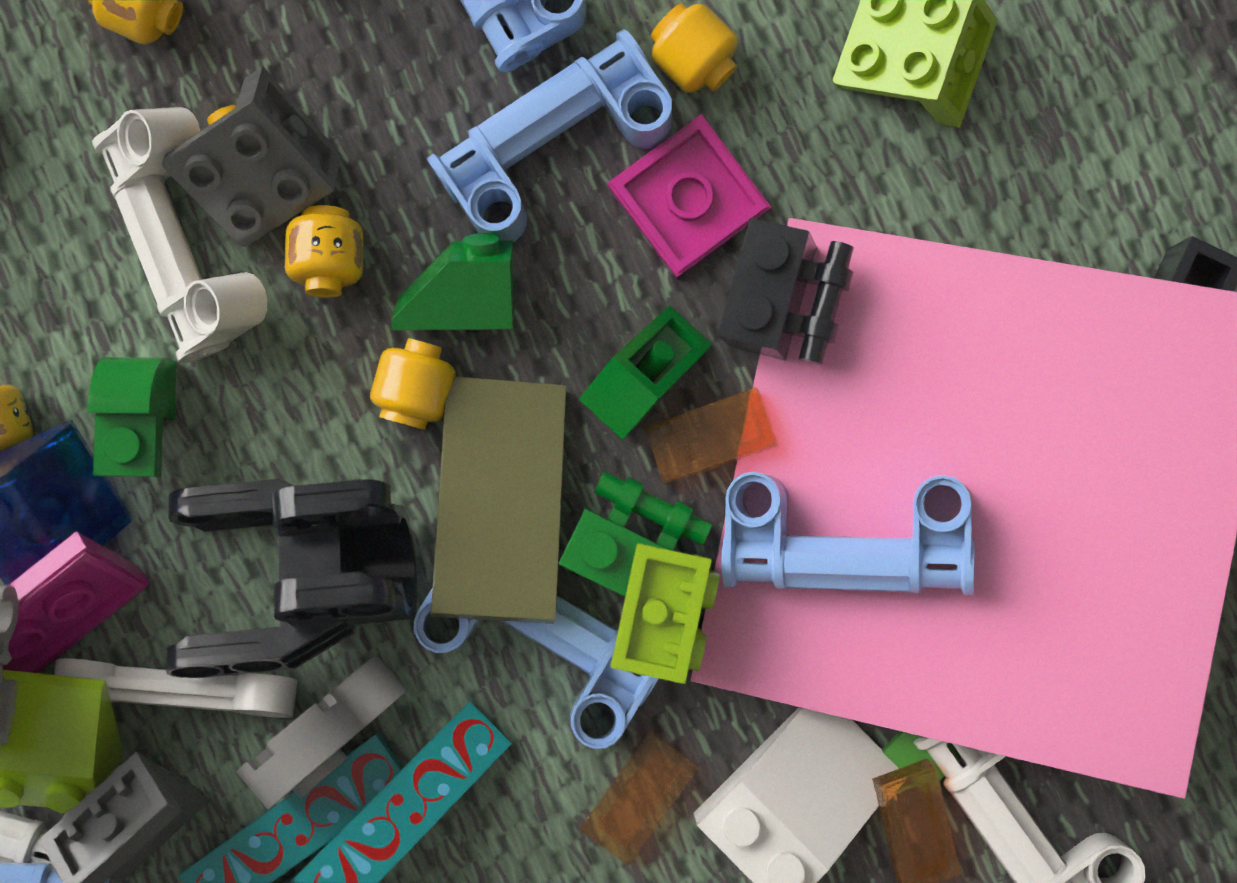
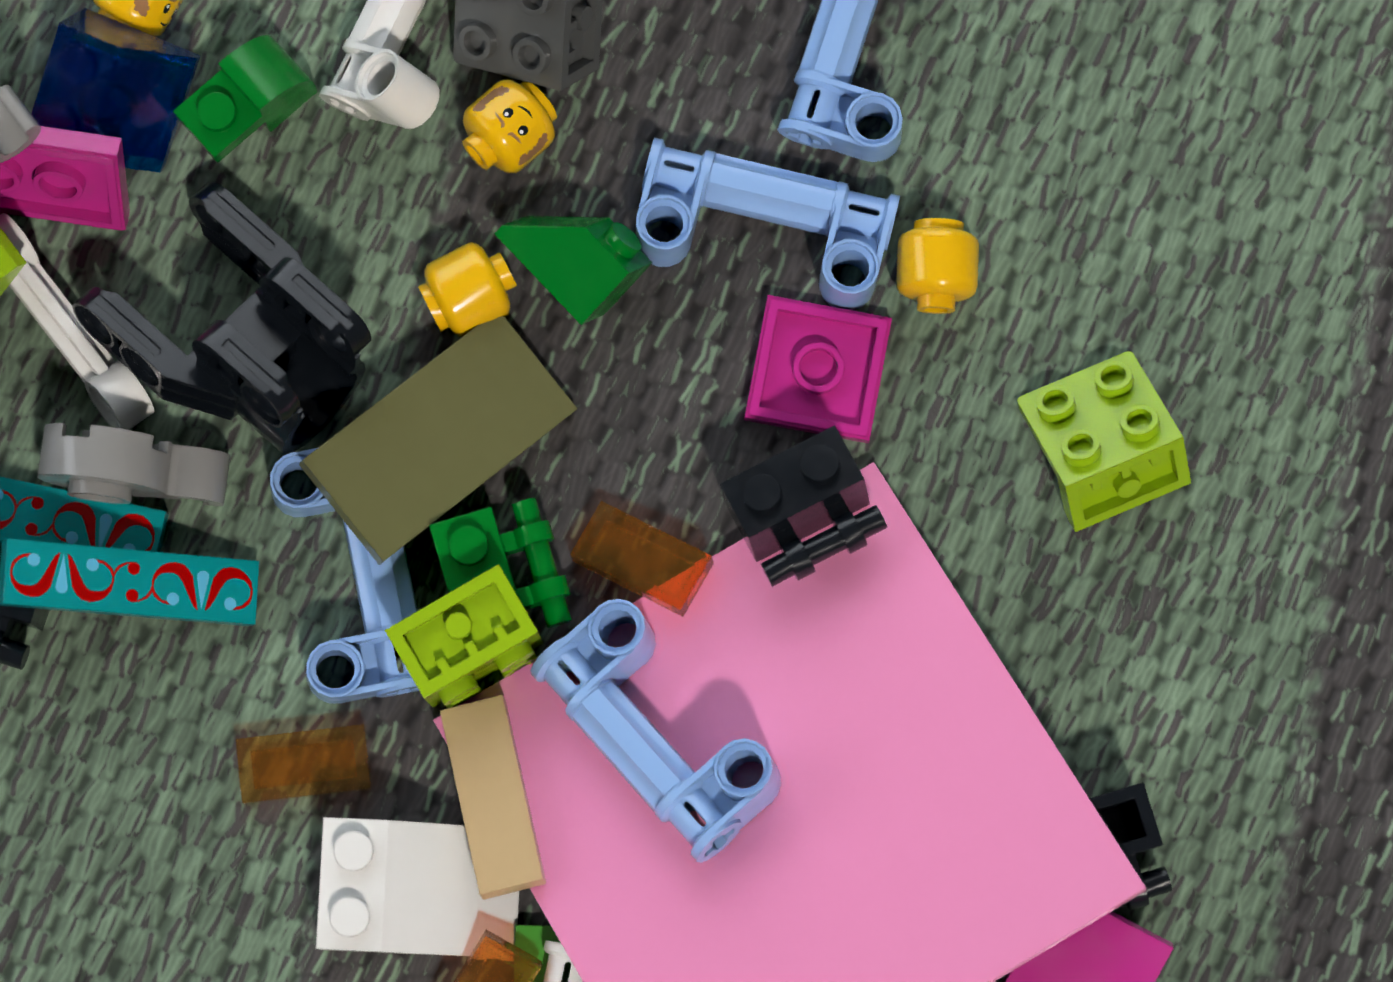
camera: 50 degrees right, 5 degrees down
(644, 371) = (645, 459): green slope -> none
(788, 692) = (493, 797): none -> tan tile

